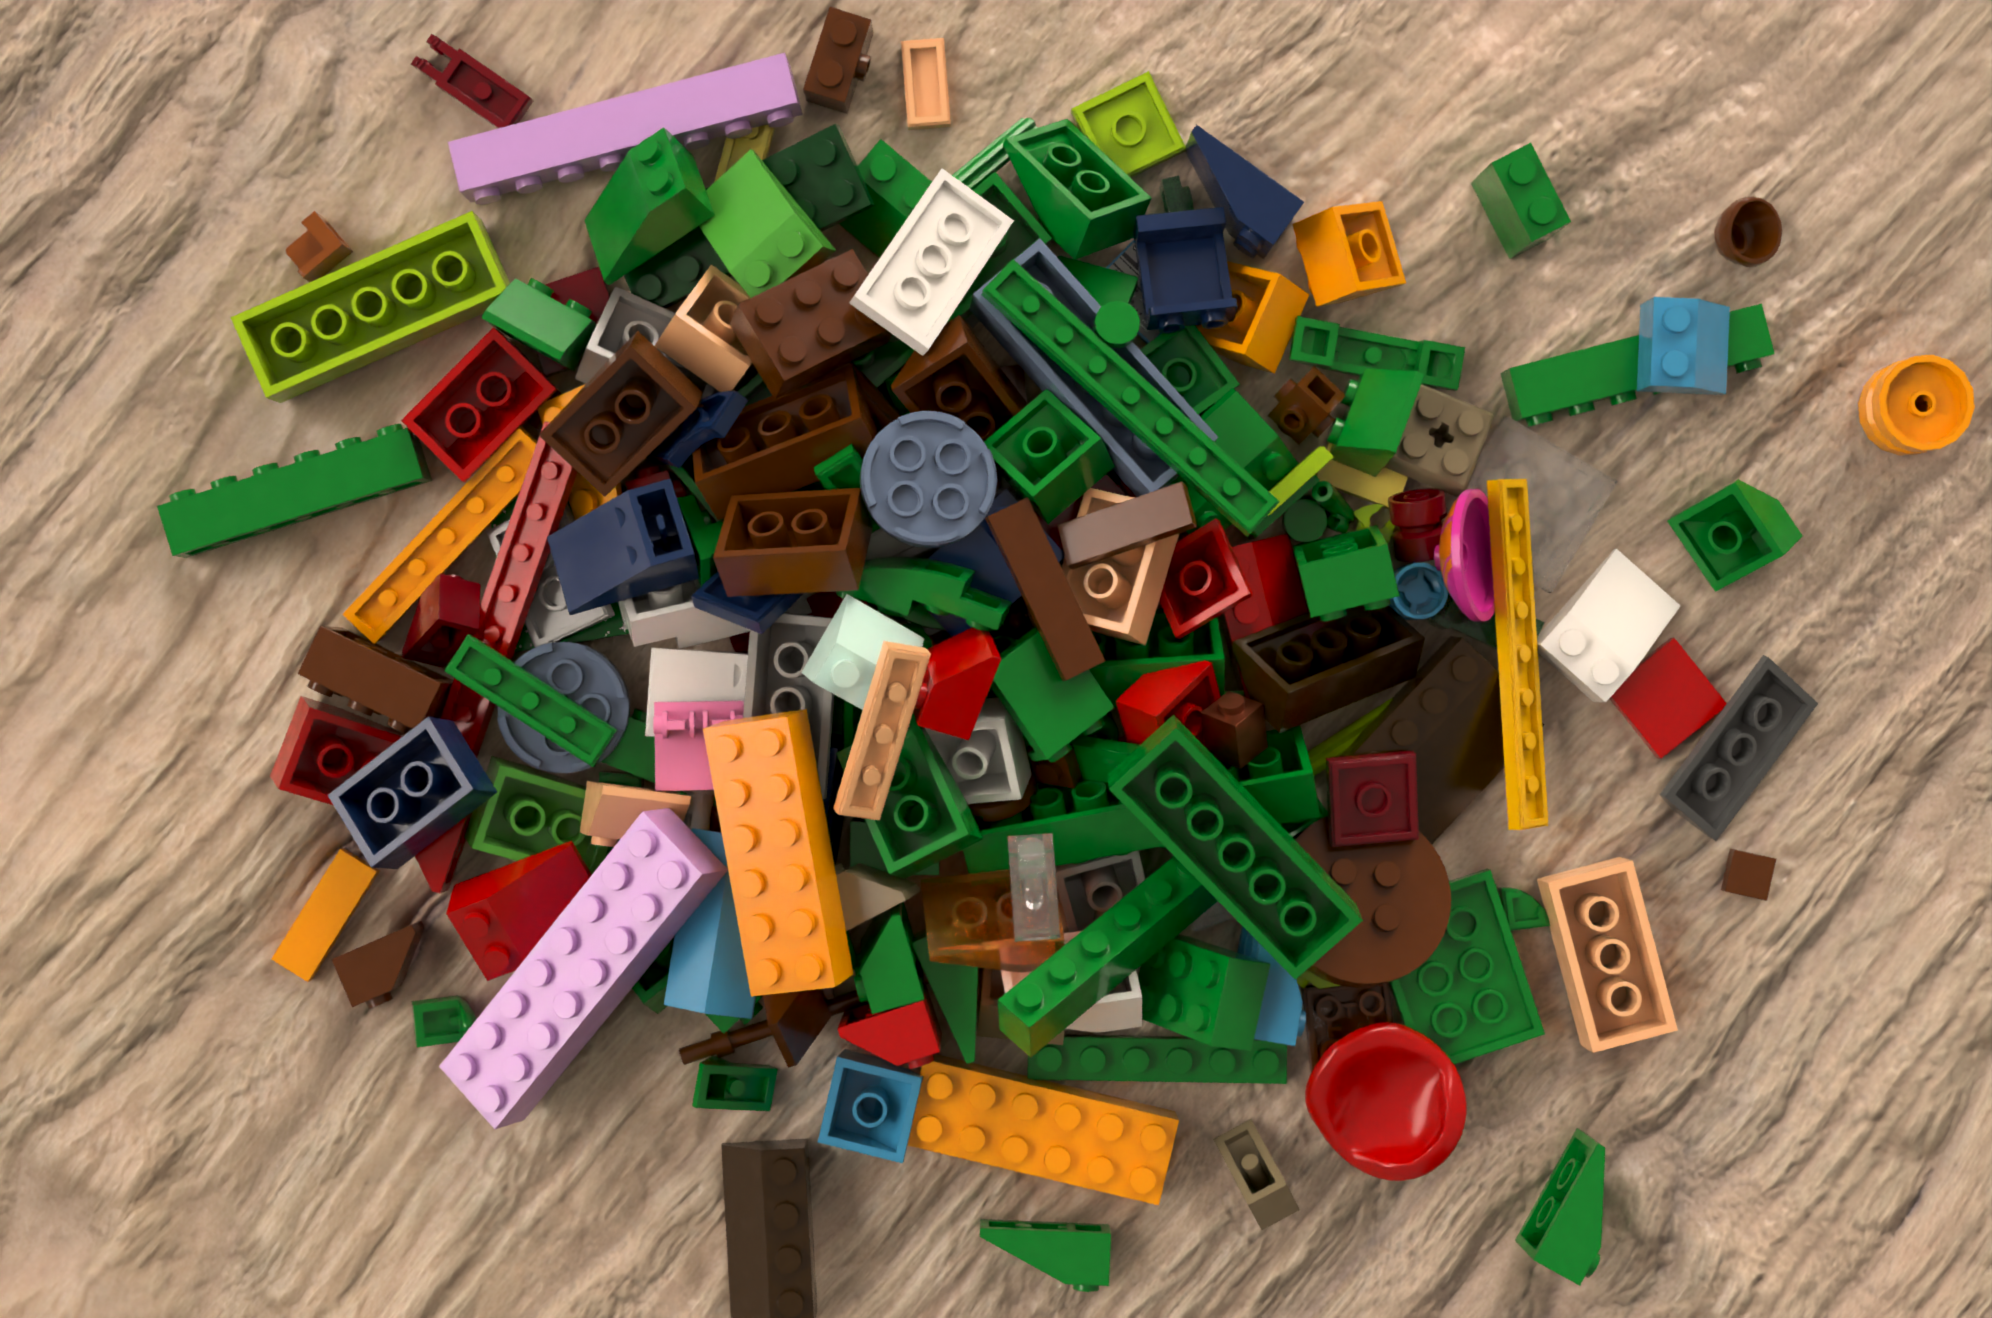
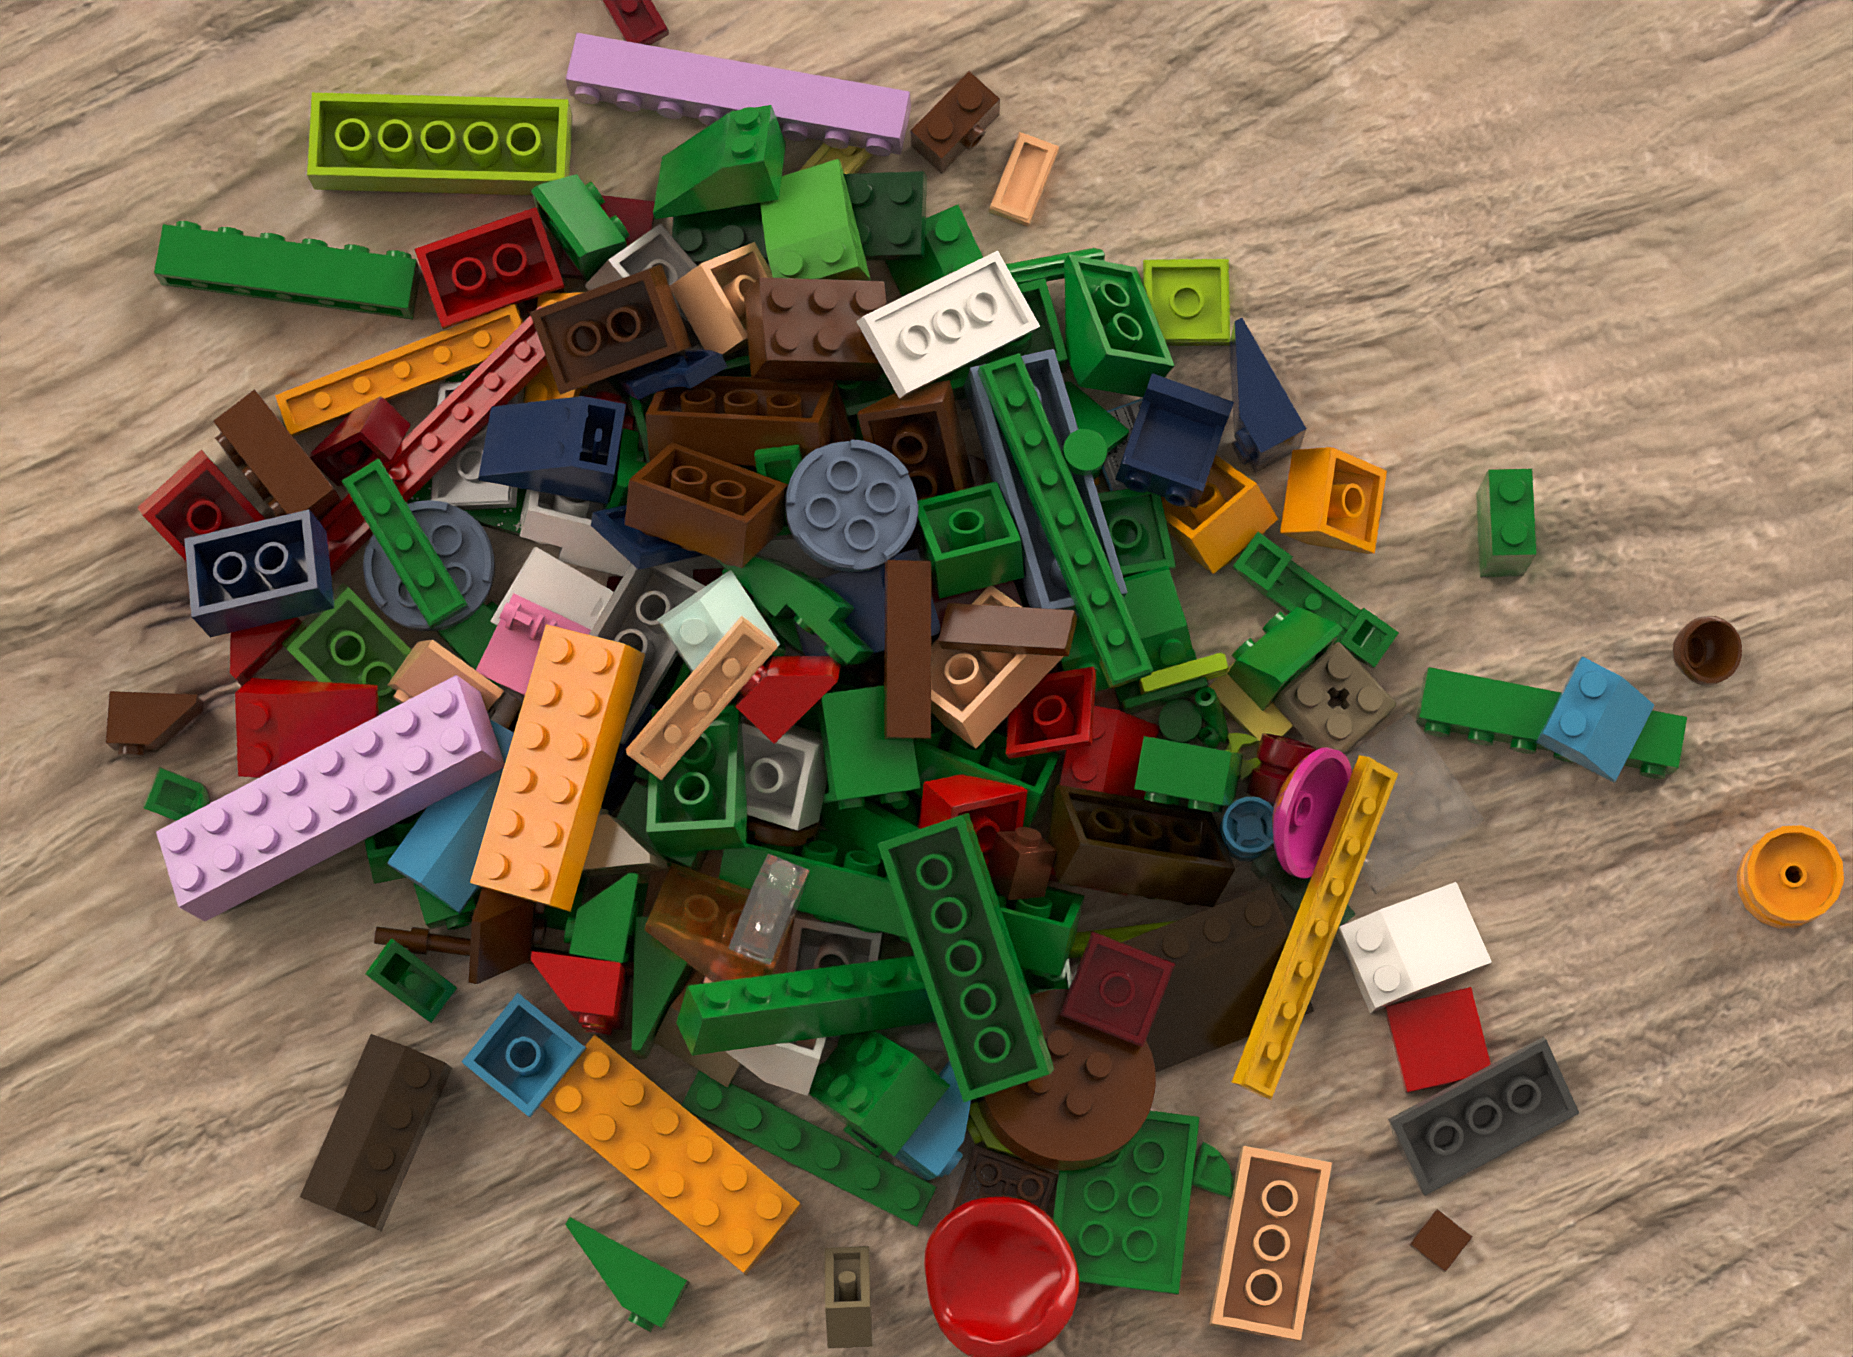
camera: 25 degrees right, 10 degrees down
(318, 248) = (416, 72): dark orange panel -> none
(325, 915) = (121, 654): light orange tile -> none
(1061, 773) = (844, 826): reddish brown plate -> none
(1174, 196) = (1198, 375): clear green plate -> none
(1306, 405) = (1228, 615): reddish brown brick -> none
(1735, 532) = (1571, 914): green slope -> none

